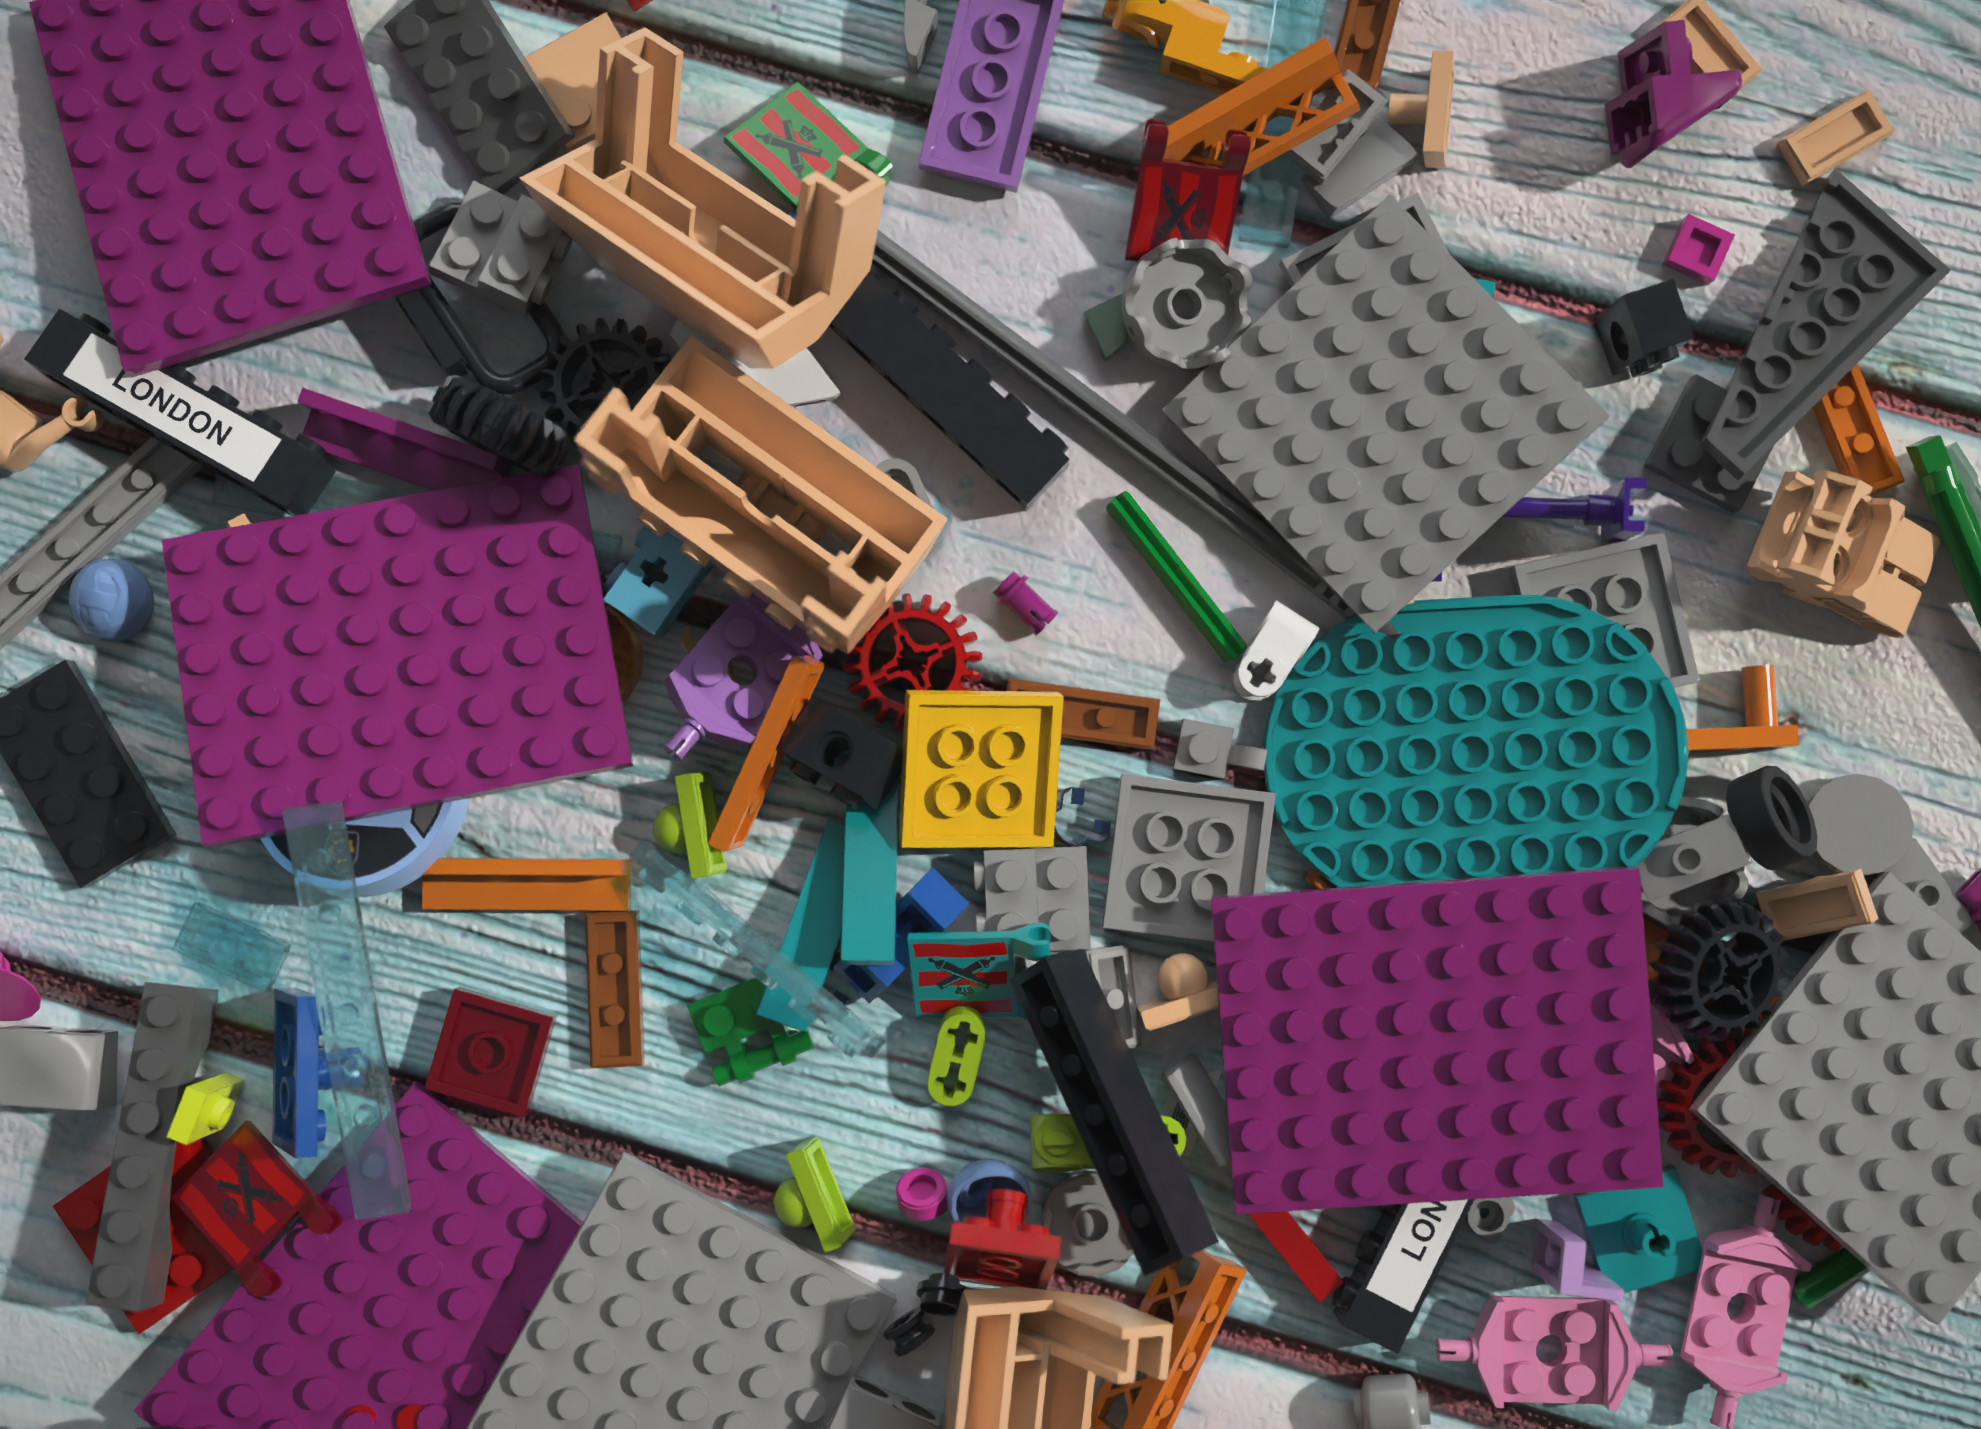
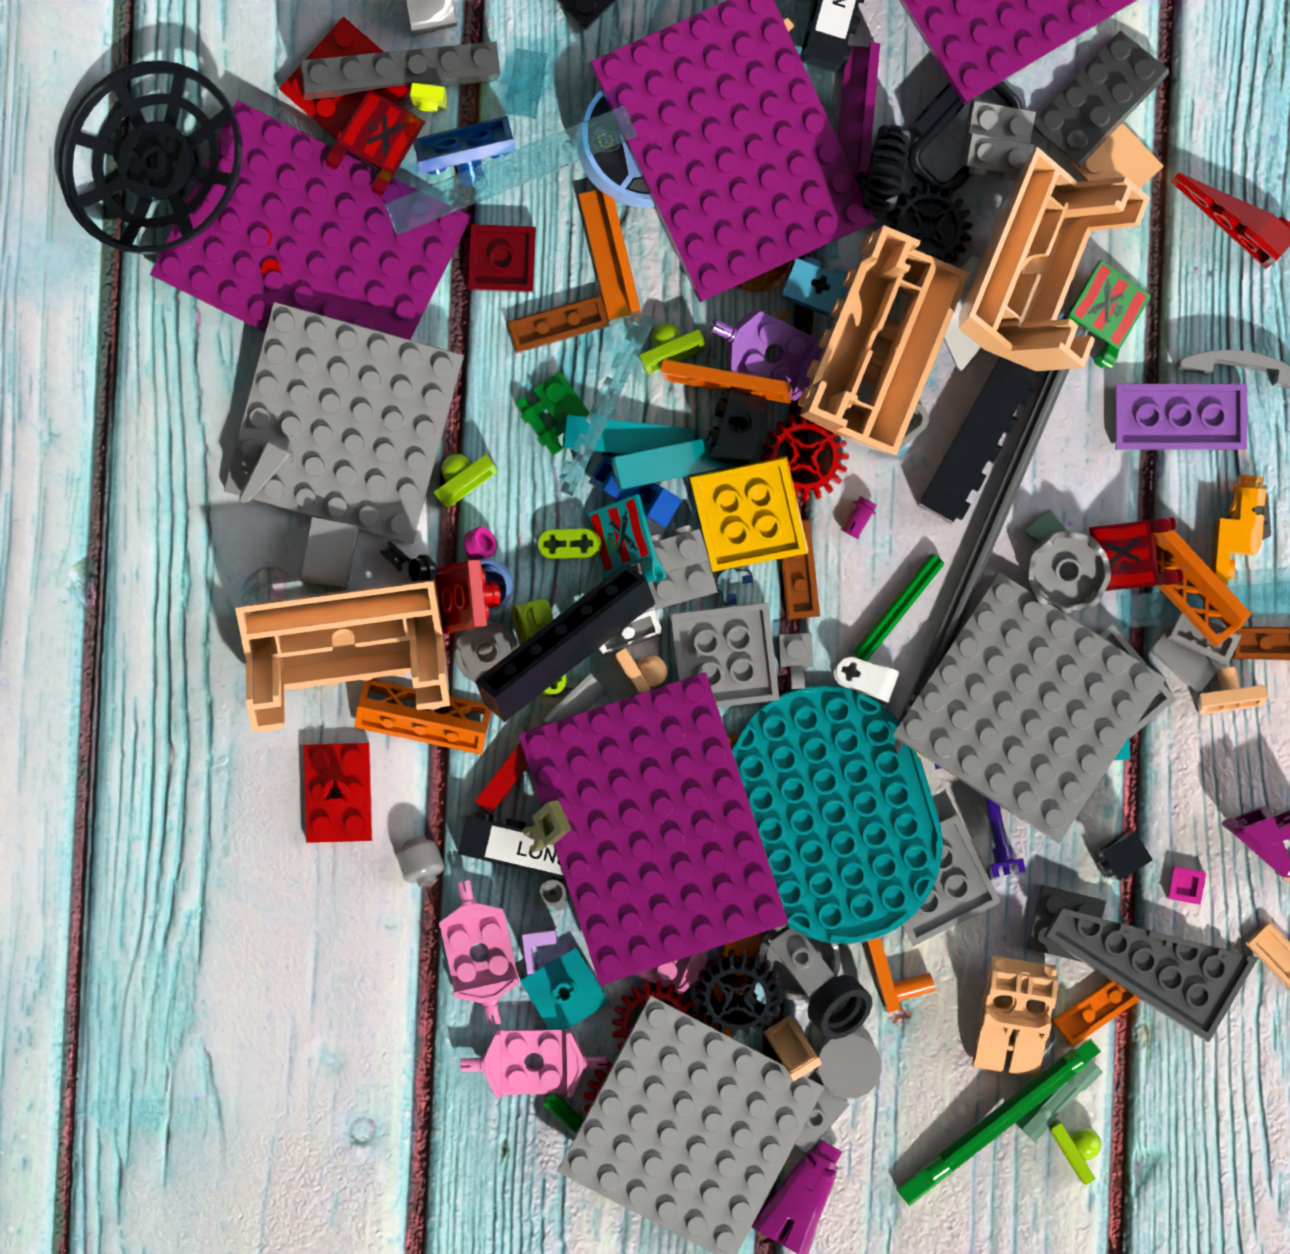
camera: 75 degrees right, 0 degrees up
(1396, 1208) = (549, 826): none -> olive plate

